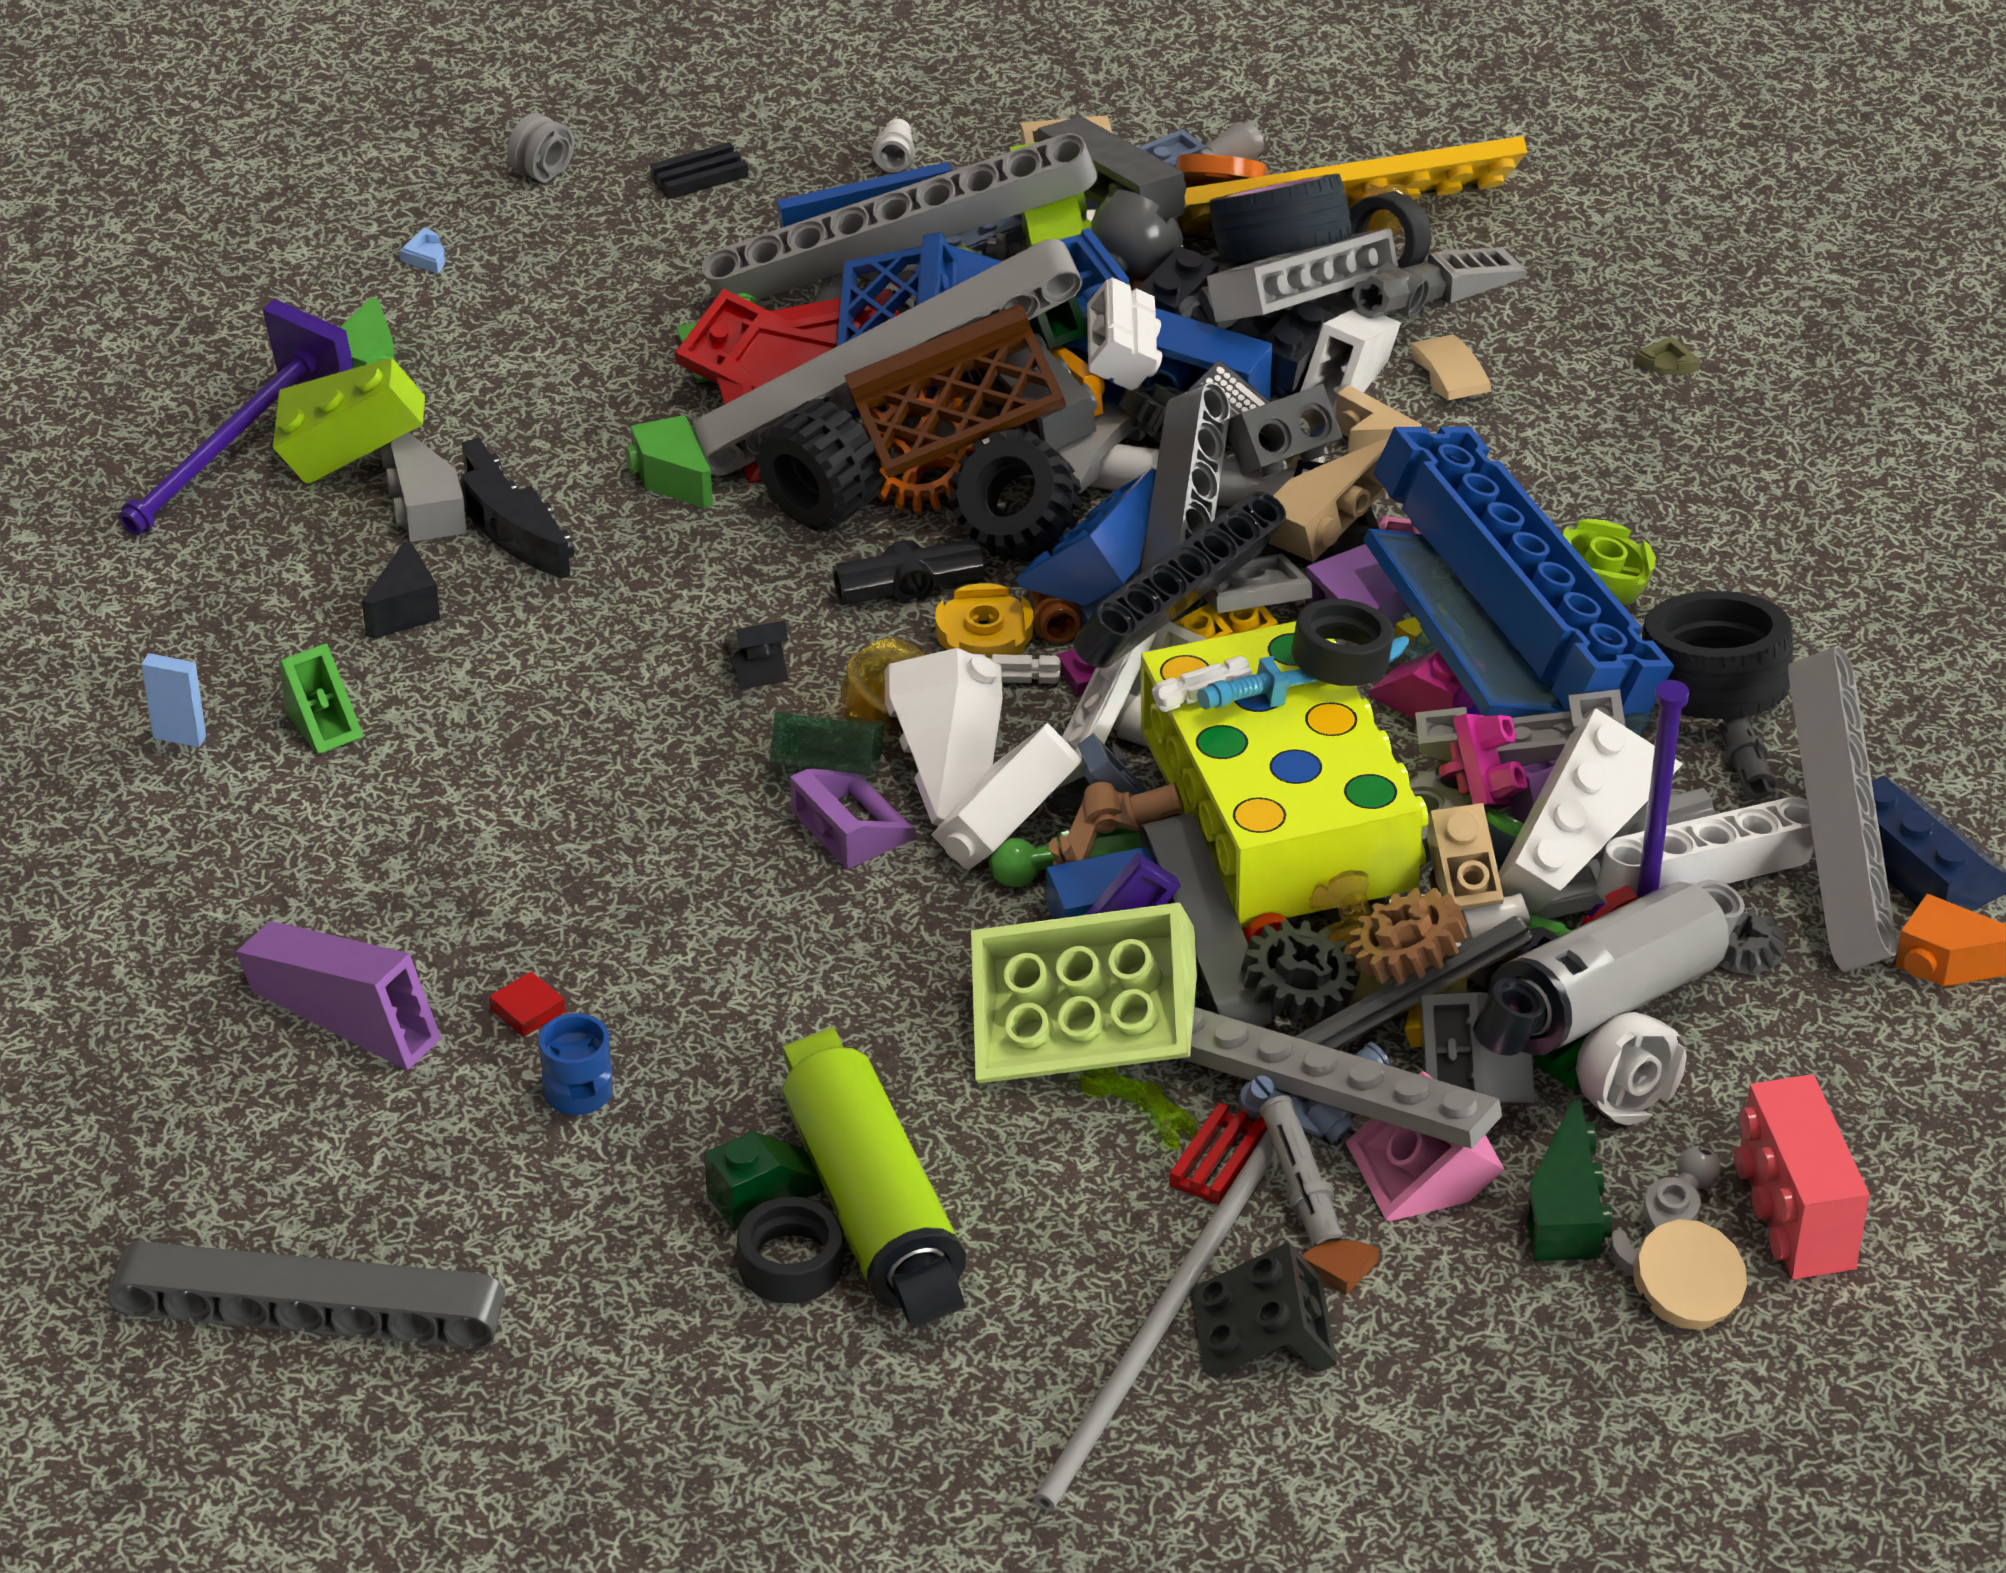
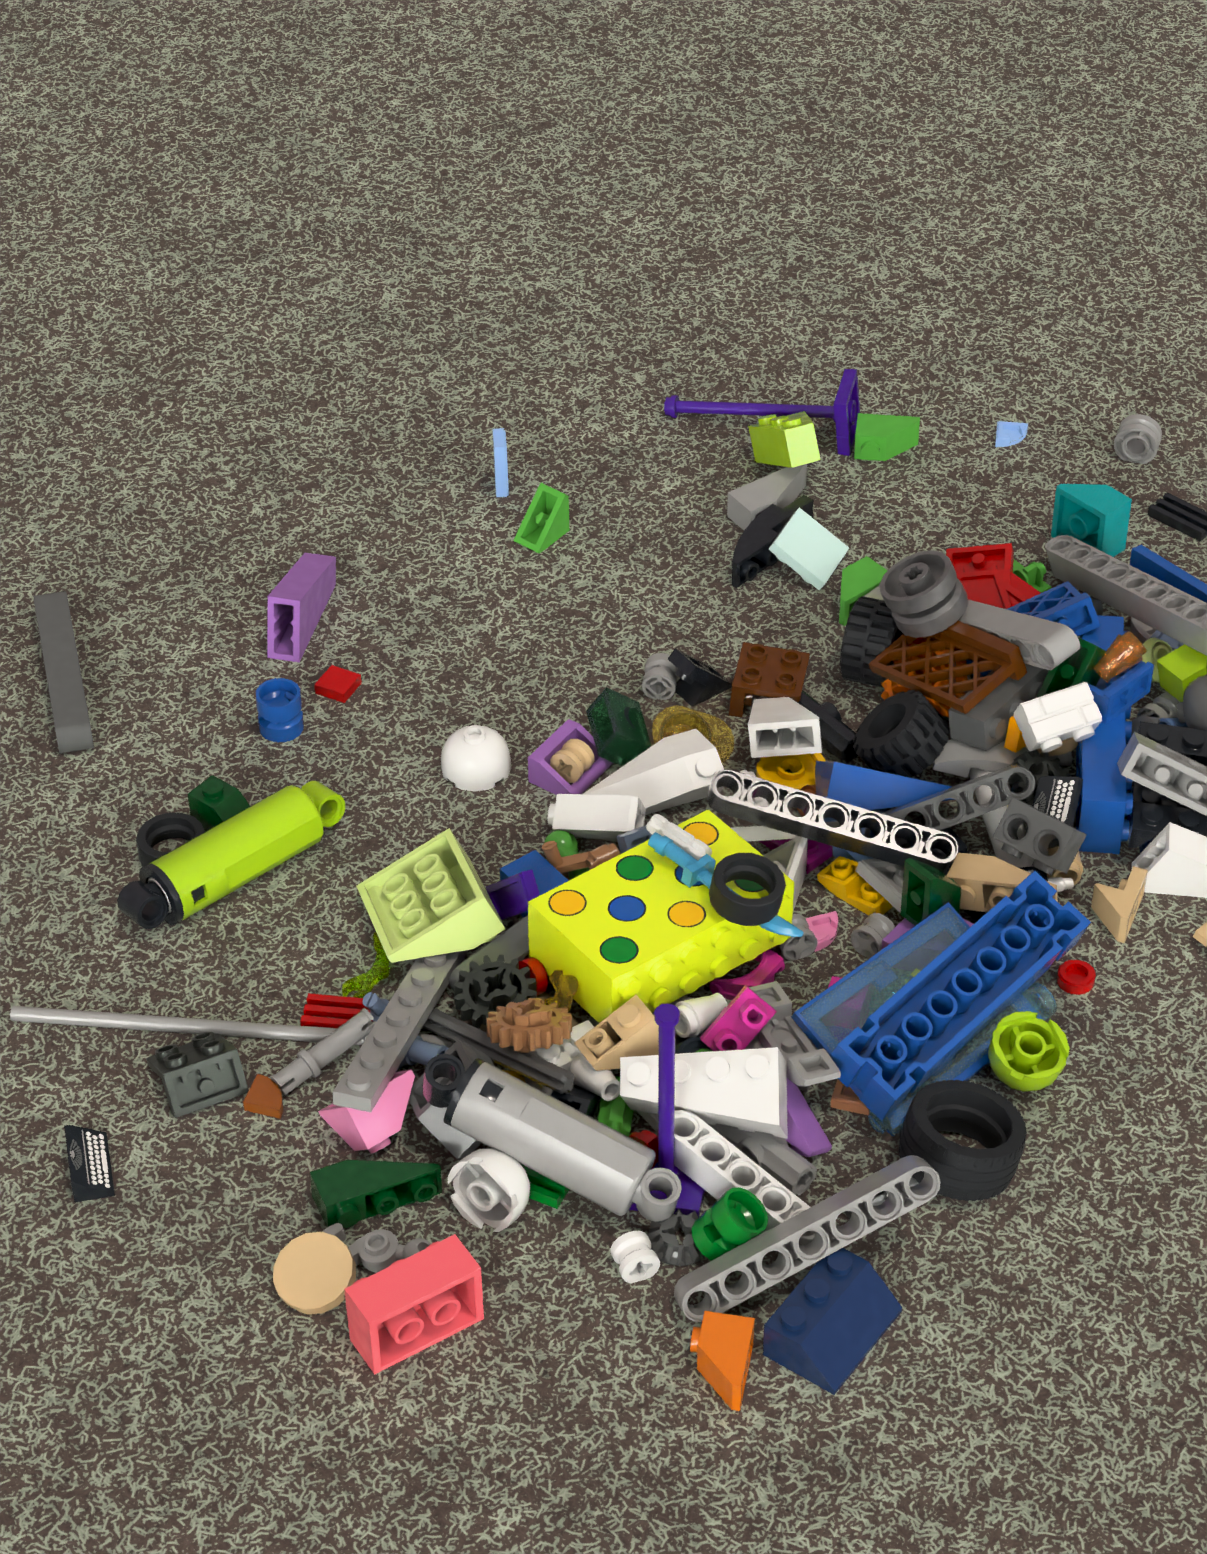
camera: 70 degrees right, 0 degrees up
(401, 596) = (662, 521): black slope -> none
(566, 477) = (808, 548): none -> light aqua tile
(690, 222) = (1092, 515): none -> teal slope
(730, 682) = (659, 677): none -> light grey wheel
(787, 899) = (475, 758): none -> white cylinder
(805, 585) = (767, 673): none -> reddish brown bracket
(858, 351) = (924, 593): none -> flat silver wheel
(865, 797) = (572, 760): none -> tan wheel
(931, 591) = (782, 728): none -> white slope
(1072, 230) = (1120, 656): none -> clear orange cone
(1341, 546) = (926, 891): none -> dark green slope
(1387, 1474) = (89, 1163): none -> slope
(1435, 789) = (698, 1014): none -> white cone
(1772, 979) = (634, 1256): none -> white wheel
(1777, 874) = (729, 1223): none -> green wheel

